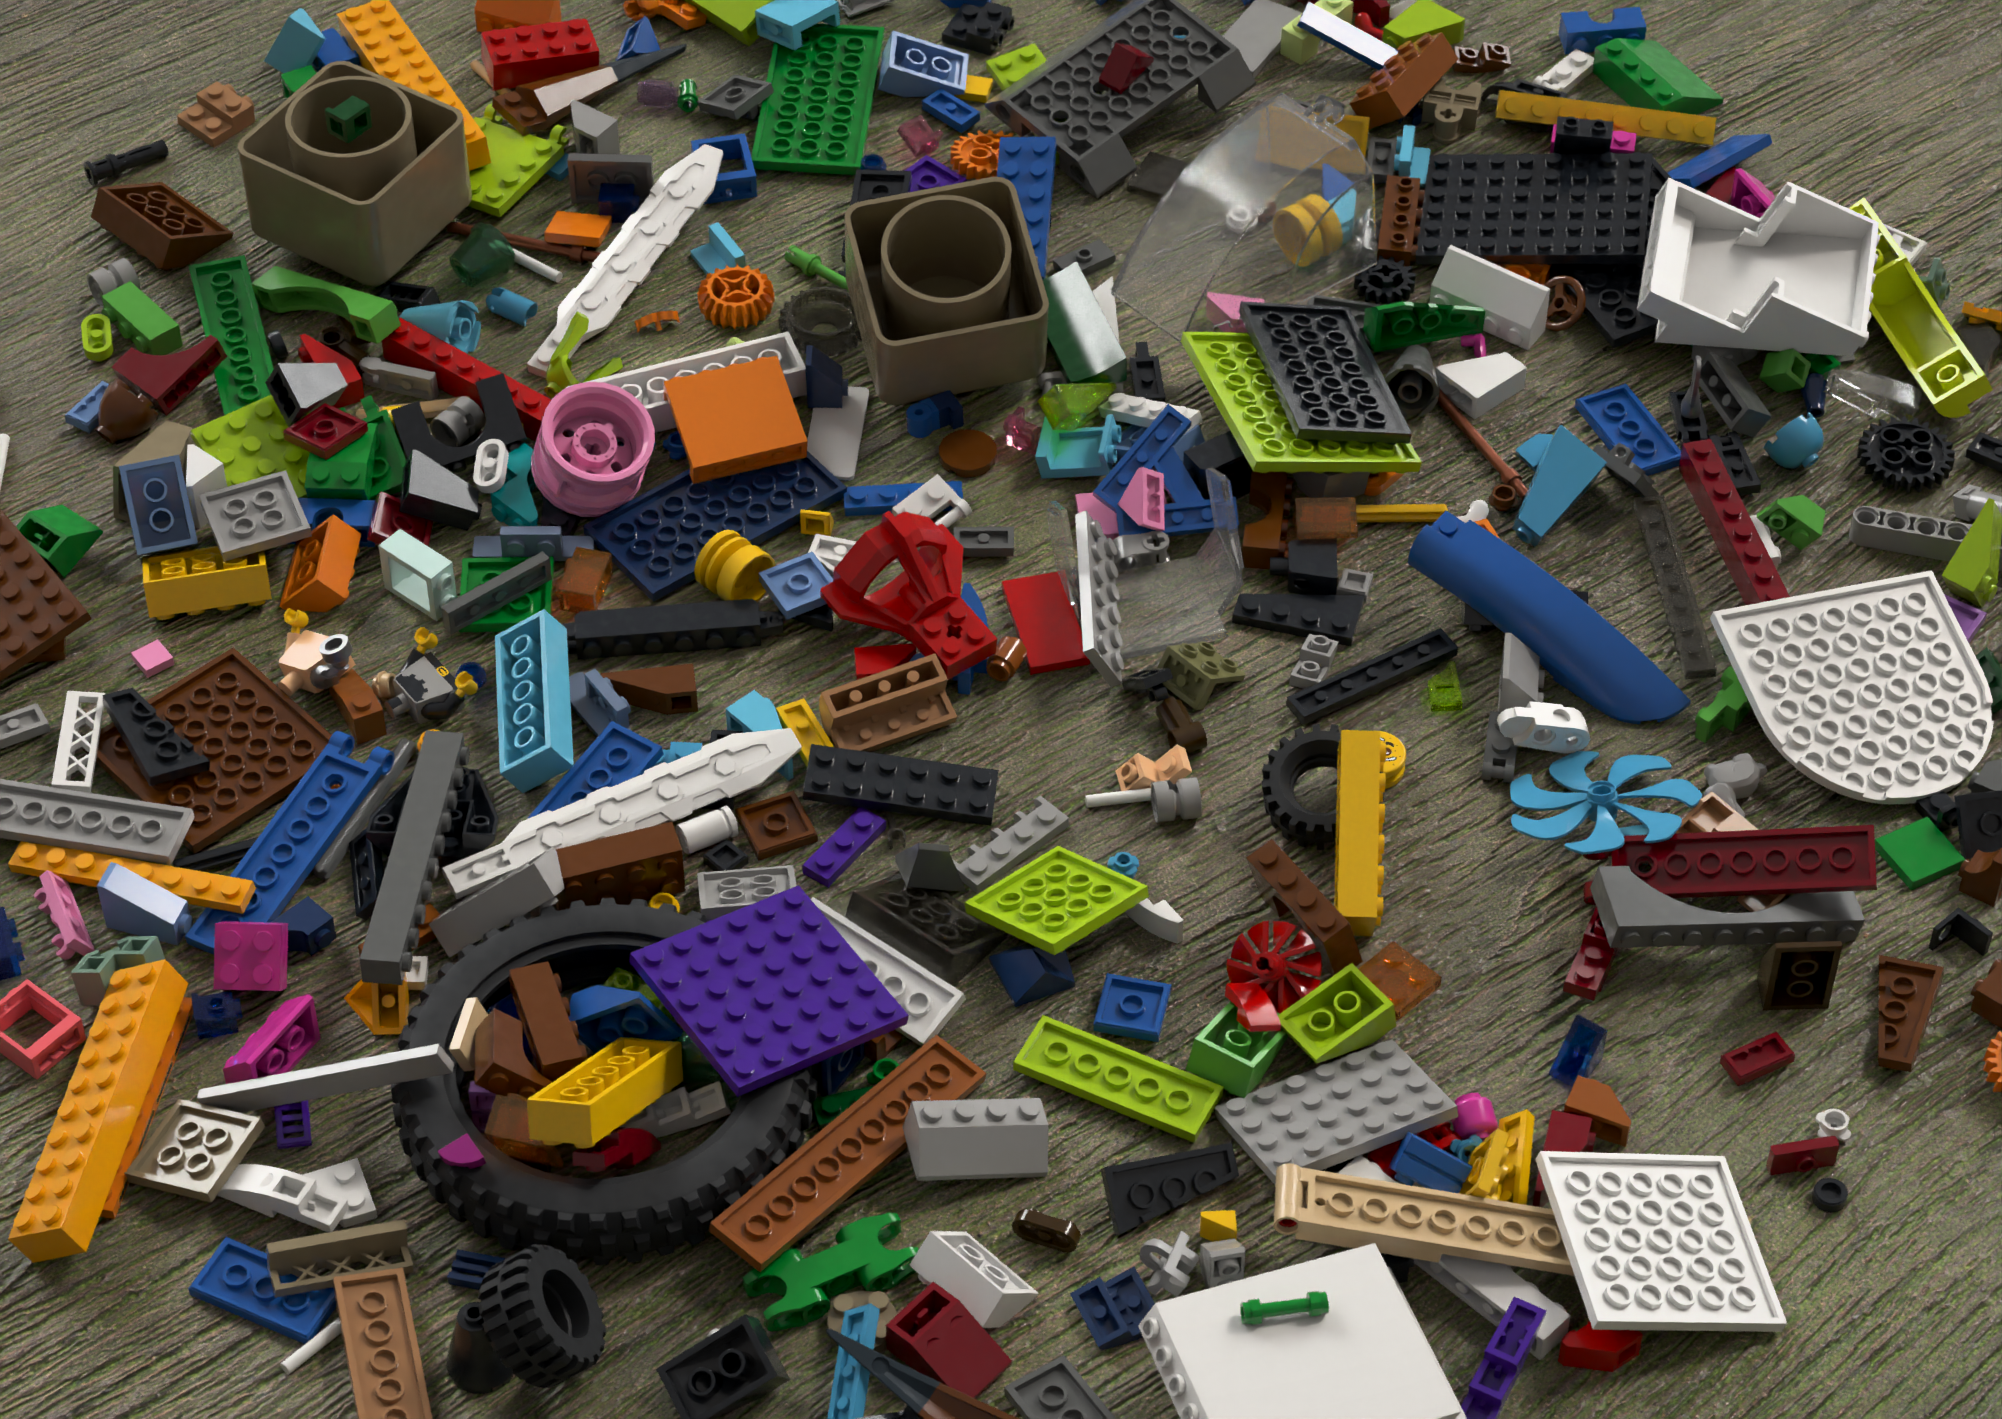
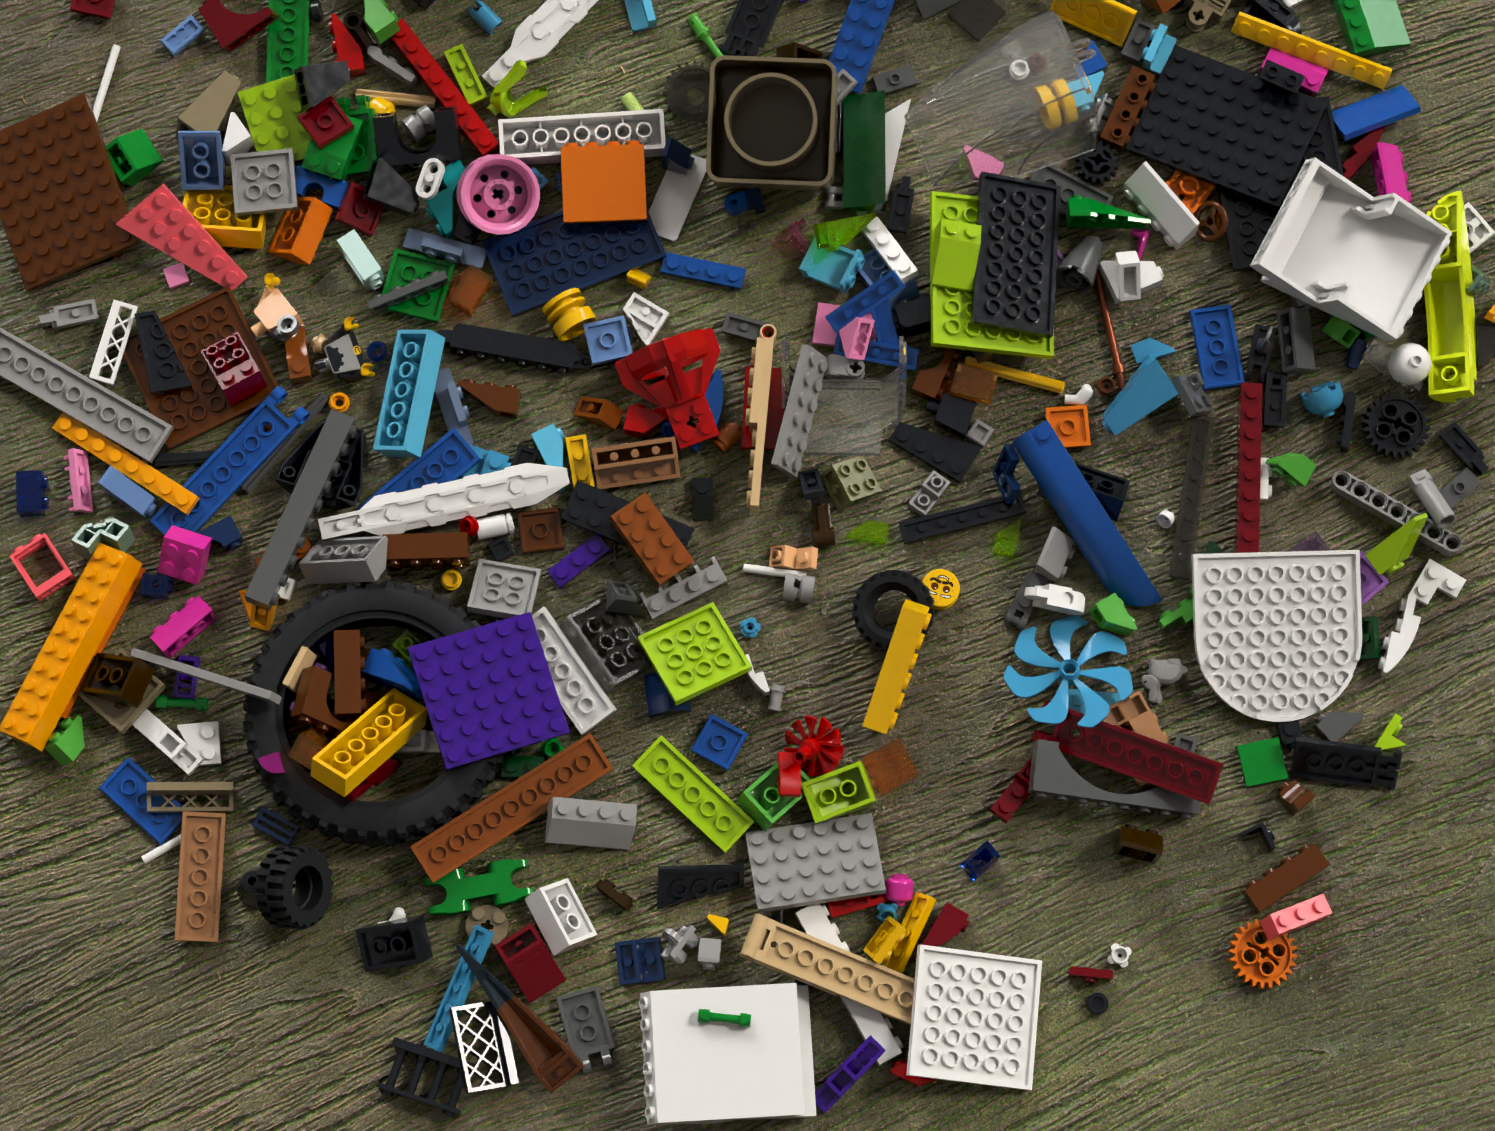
camera: 15 degrees right, 30 degrees up
(122, 1232) = (68, 741): none -> bright green slope
(123, 413) = (199, 52): reddish brown piece -> none
(141, 587) = (175, 231): none -> coral wing
(188, 1125) = (118, 679): none -> dark brown slope
(269, 729) = (234, 368): none -> dark red slope
(323, 1145) = (200, 704): none -> green bar
(366, 874) = (272, 502): black plate -> none
(448, 321) = (431, 29): medium azure cone -> none
(496, 356) = (465, 75): none -> lime plate
(657, 318) = (585, 55): orange piece -> none
(678, 821) = (470, 525): none -> red plate
(736, 296) = (649, 66): orange gear -> none
(814, 670) = (598, 412): none -> dark orange slope
(932, 499) = (714, 286): white plate -> none
(944, 781) = (651, 540): none -> dark orange brick
(967, 452) = (758, 241): reddish brown tile -> none
(998, 738) = (702, 499): none -> black slope
(1043, 612) = (757, 415): none -> tan hinge
(1194, 936) = (776, 697): none -> light grey pin
(1244, 373) = (955, 254): none -> lime slope
(1250, 721) = (871, 532): none -> clear neon green tile
(1288, 888) = (837, 681): reddish brown arch -> none
(1408, 608) = (1004, 474): none -> dark blue plate
(1428, 1165) = (856, 922): blue brick -> none
(1481, 365) = (1128, 275): none -> white slope
(1600, 1103) = (976, 904): dark orange slope -> none
(1632, 732) = (1112, 616): none -> bright green slope
(1644, 617) = (1161, 518): none -> white hinge
(1757, 1058) = (1092, 893): dark red plate -> none
(1839, 460) = (1347, 420): none -> black hinge
(1892, 375) = (1409, 363): none -> white cylinder
(1904, 1009) = (1201, 879): reddish brown wing -> none

